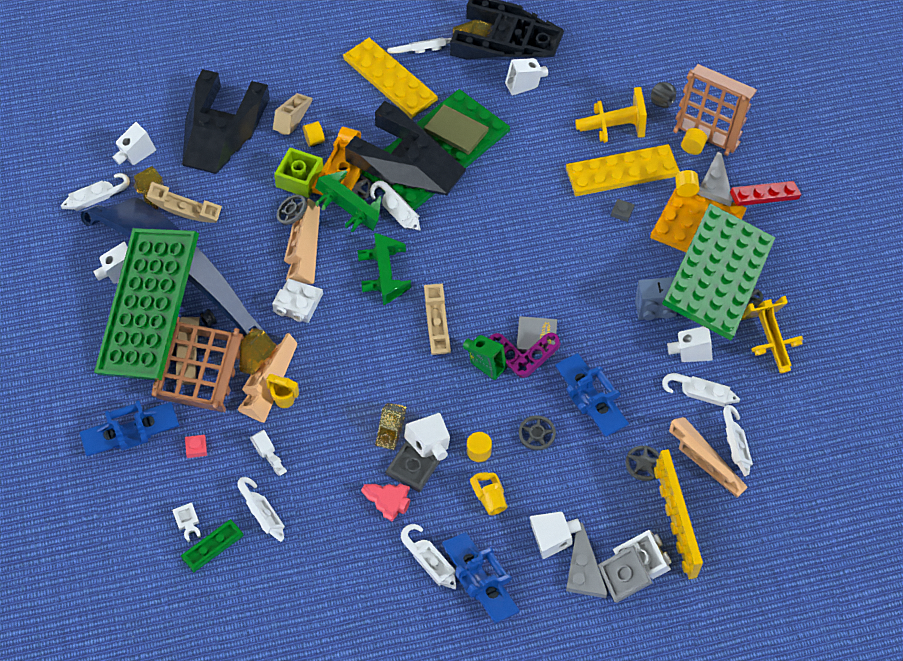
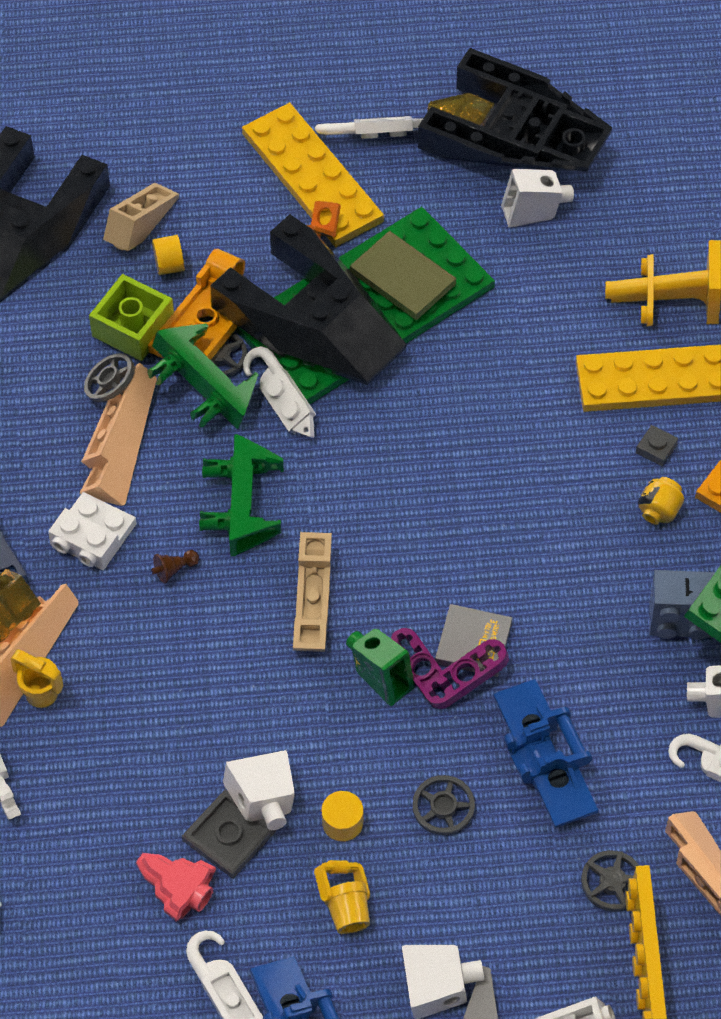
camera: 10 degrees right, 0 degrees up
(347, 315) = (167, 566): none -> reddish brown piece
(390, 425) = (203, 760): clear yellow slope -> none
(407, 108) = (330, 228): none -> orange bracket
(631, 241) = (661, 500): none -> yellow head

